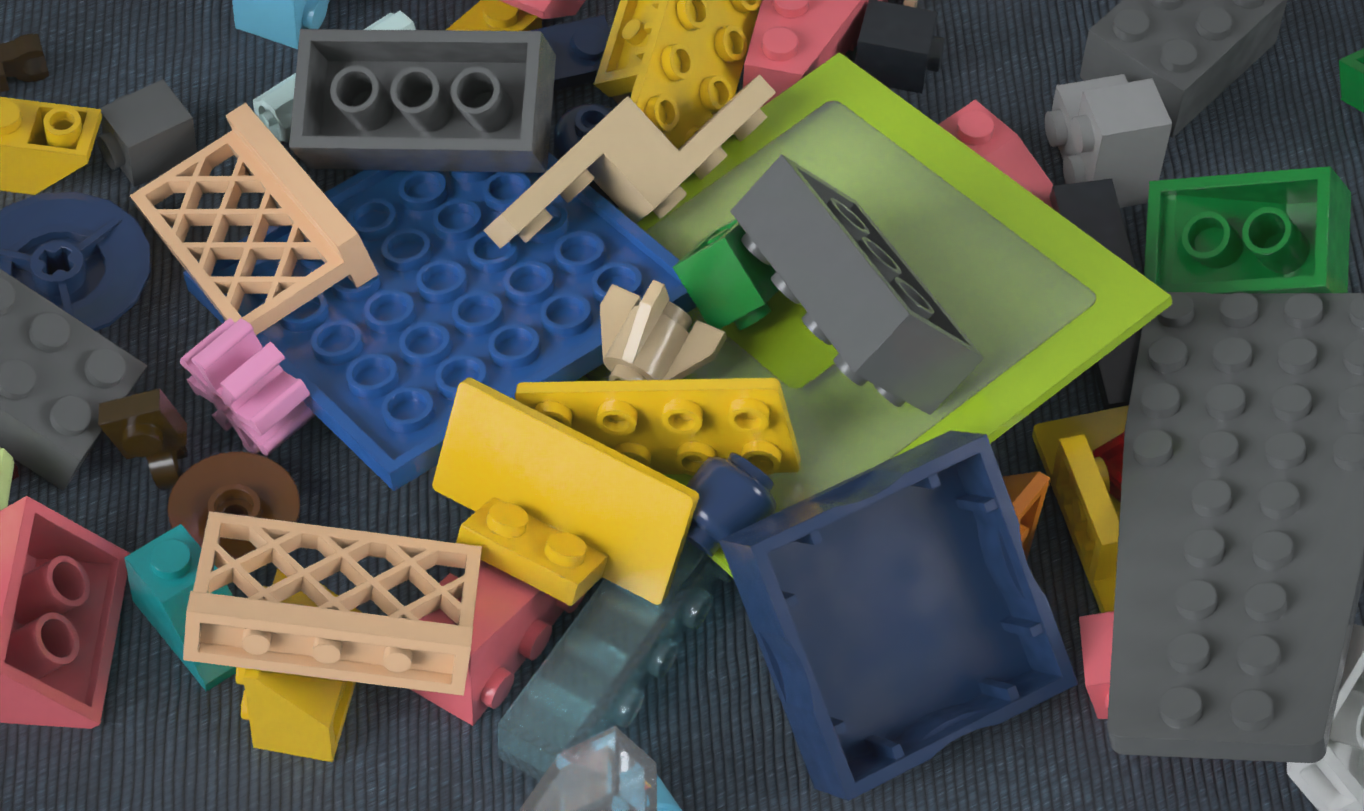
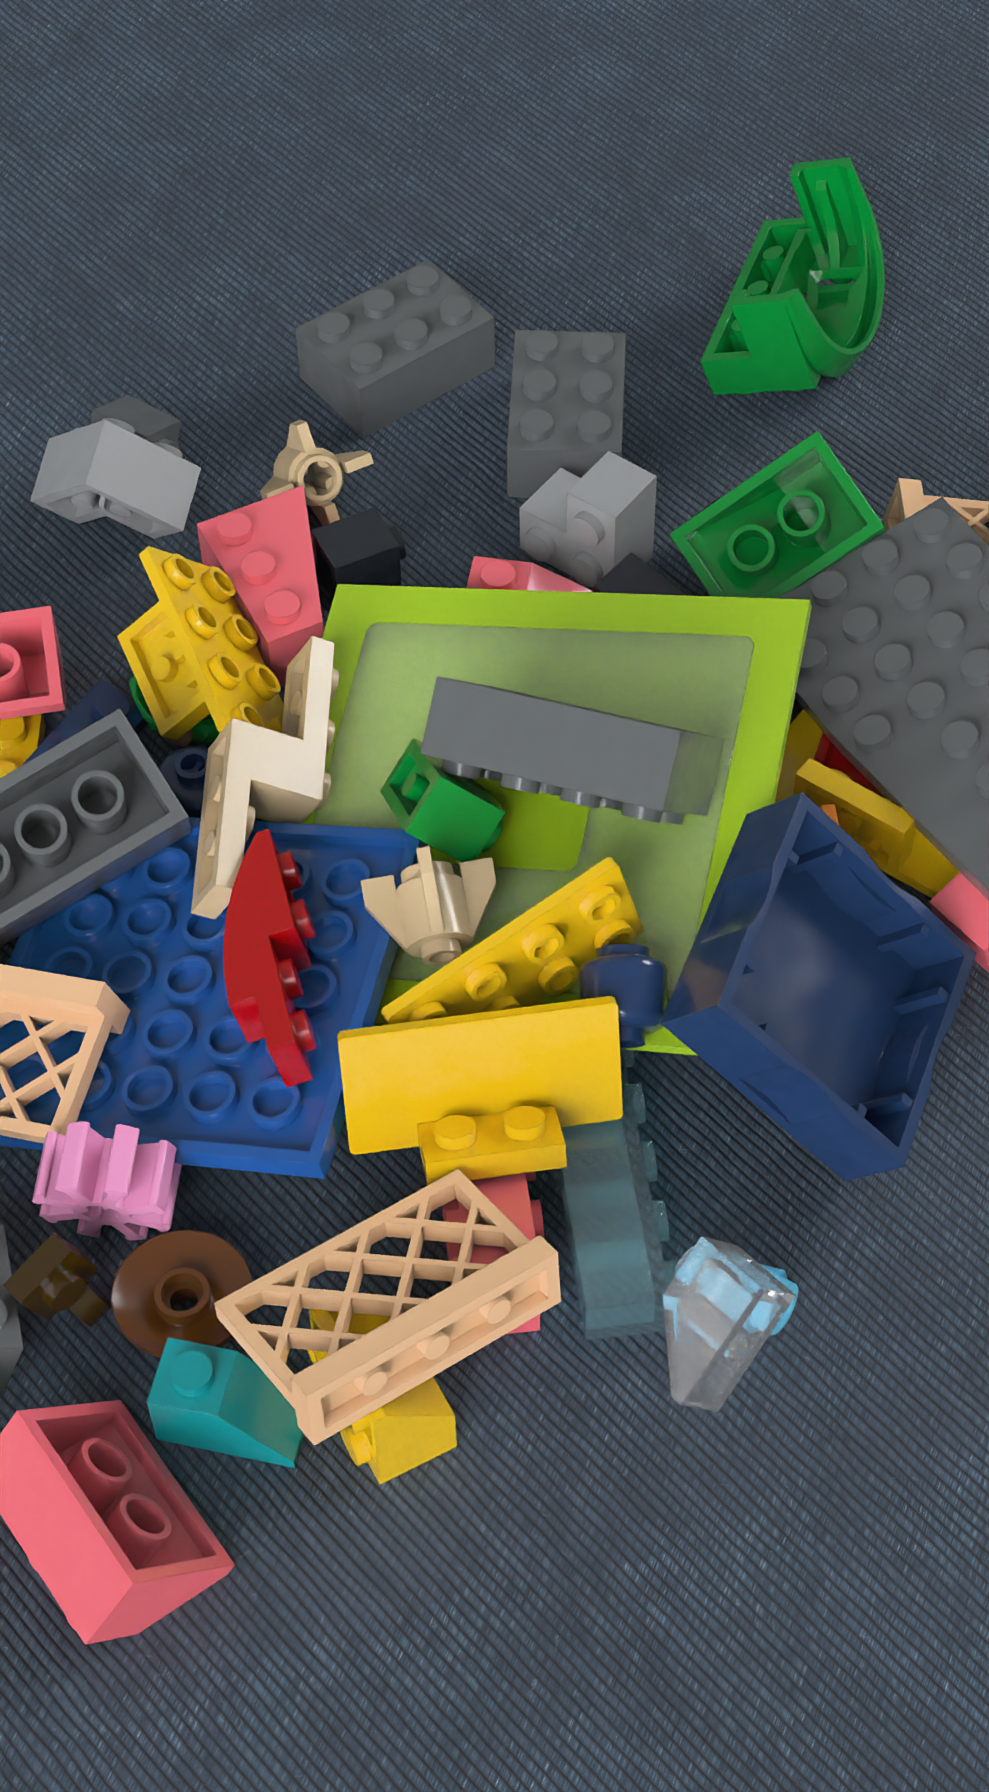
camera: 35 degrees left, 0 degrees up
(495, 285) = (263, 953): none -> red slope

